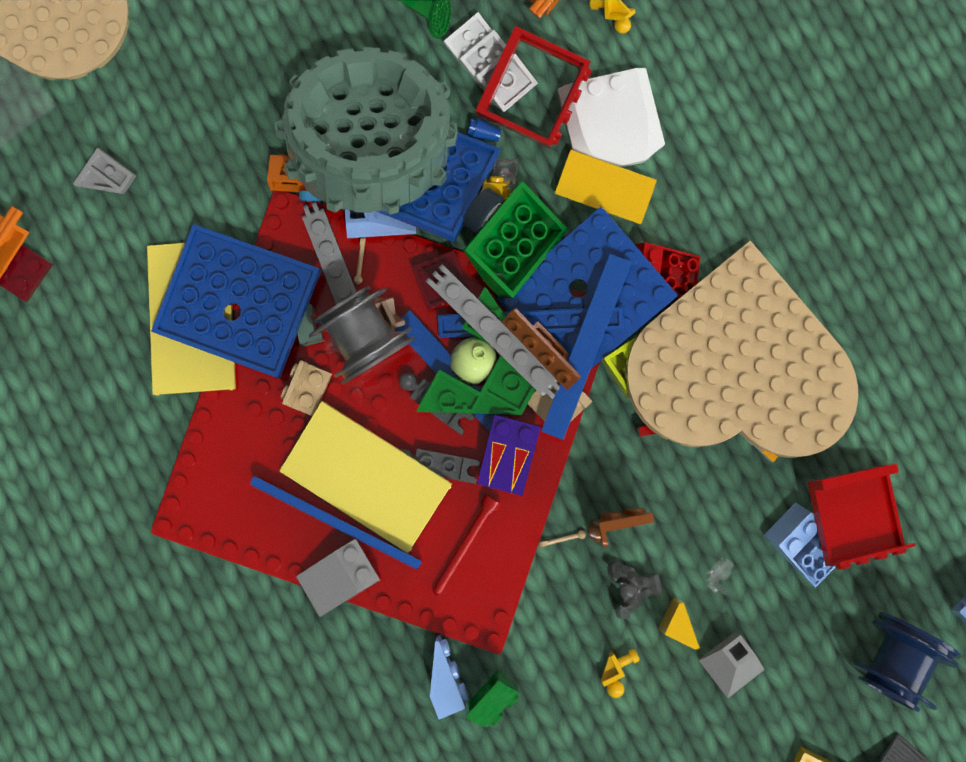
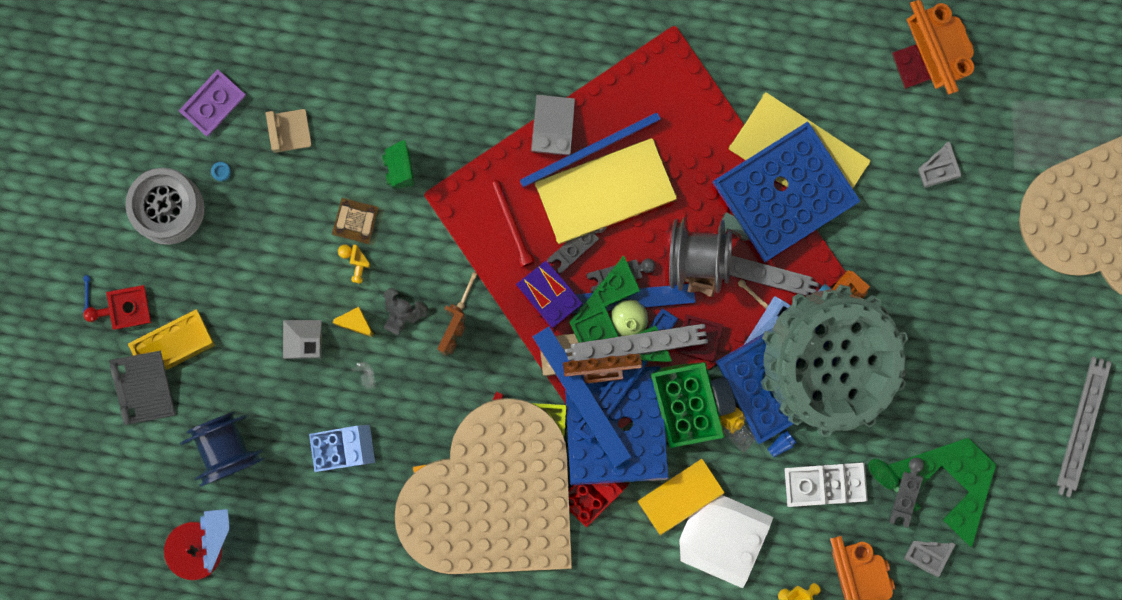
camera: 130 degrees right, 0 degrees up
(305, 388) = (692, 195): tan bracket -> none
(445, 690) = (429, 141): light blue slope -> none
(519, 35) = (811, 481): red window -> none
(577, 701) = (355, 221): none -> tile
(857, 516) = (335, 495): red panel -> none

